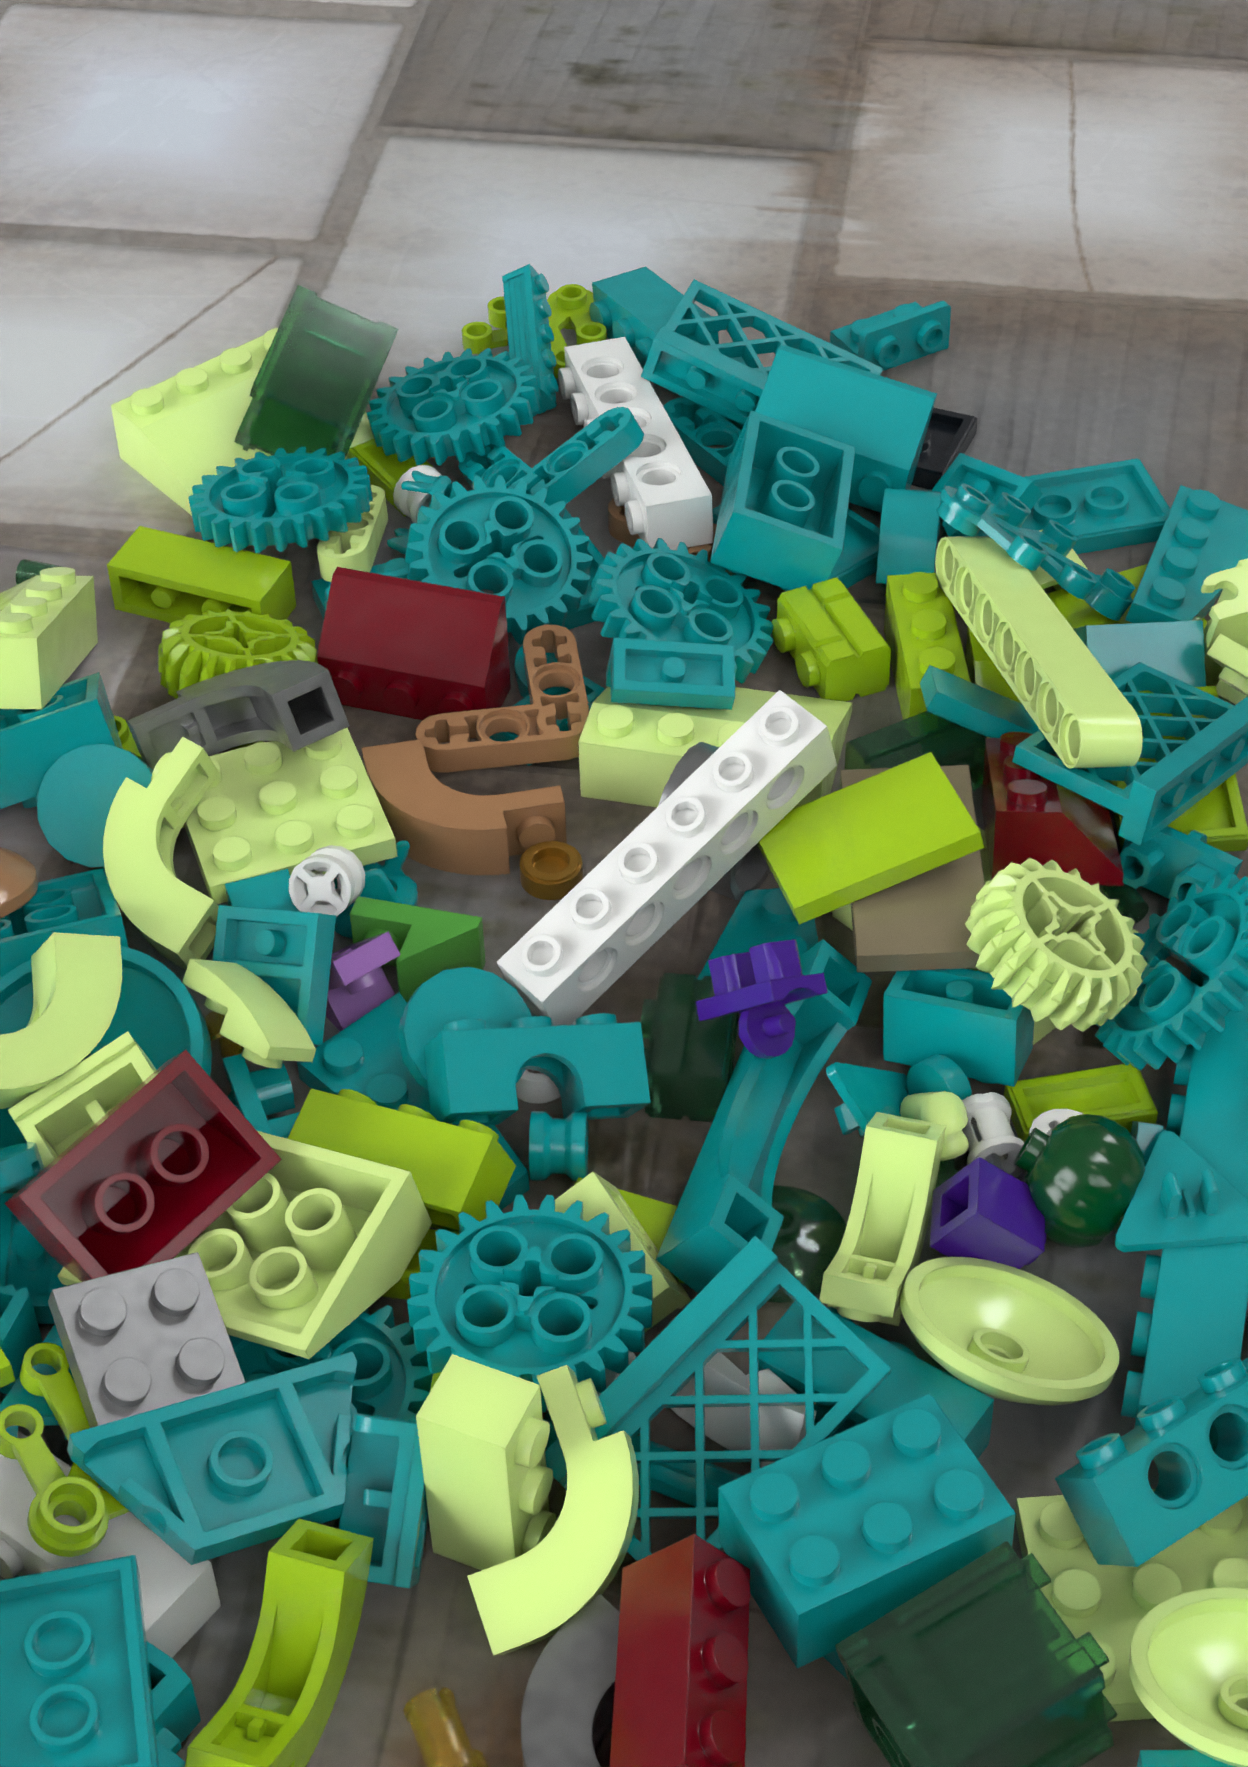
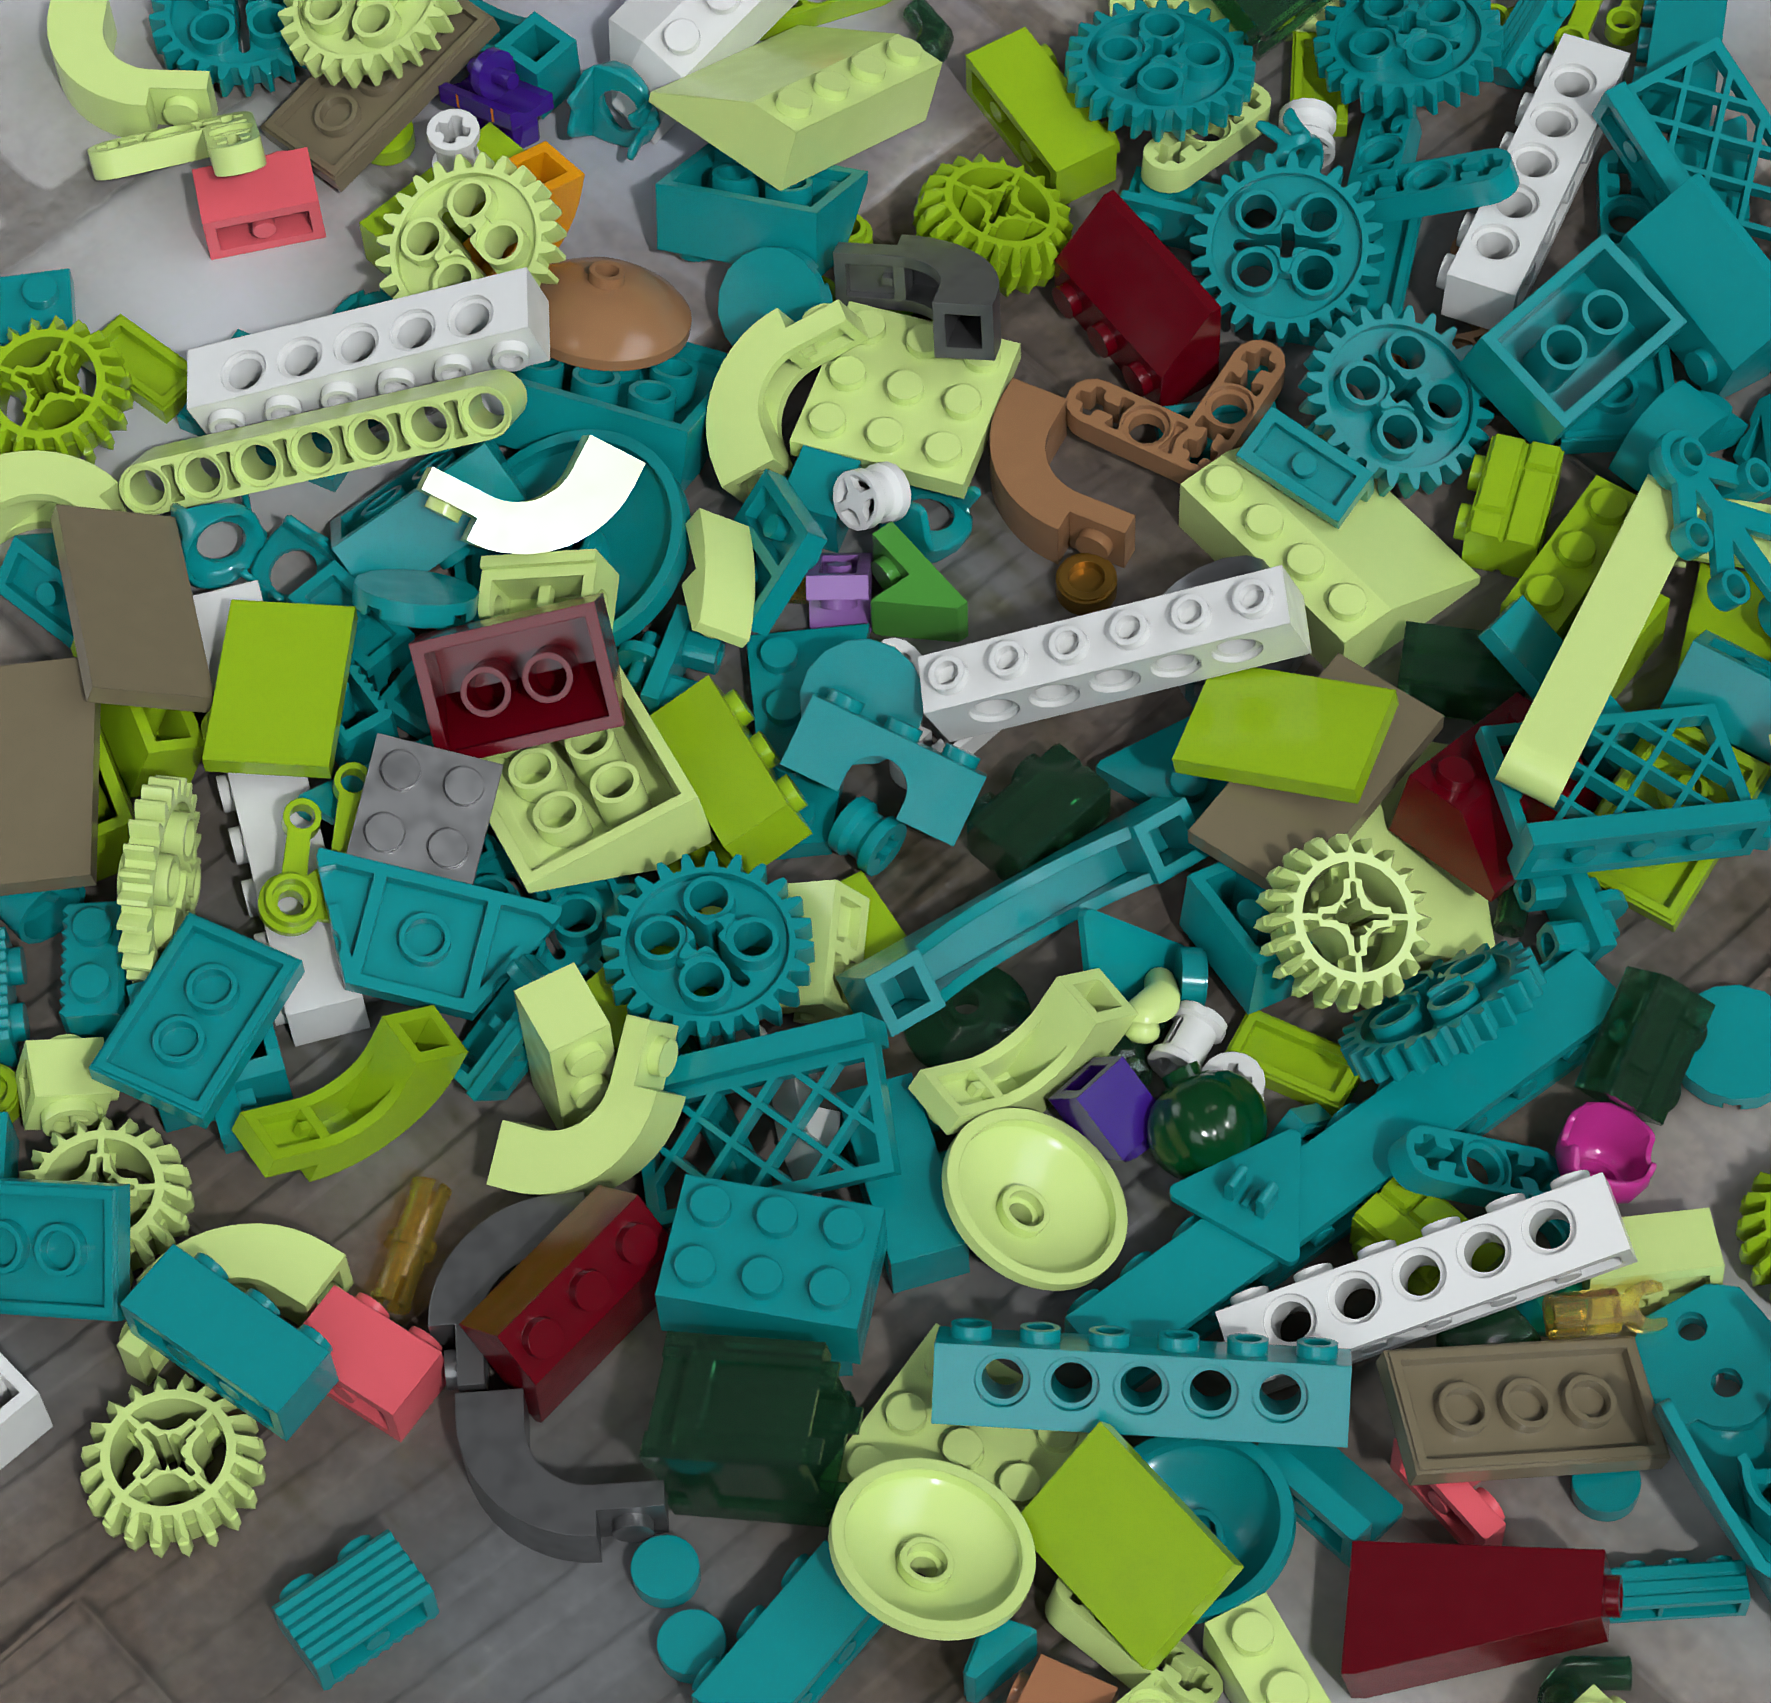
camera: 40 degrees right, 15 degrees up
(759, 988) = (1080, 815): dark purple hips -> none

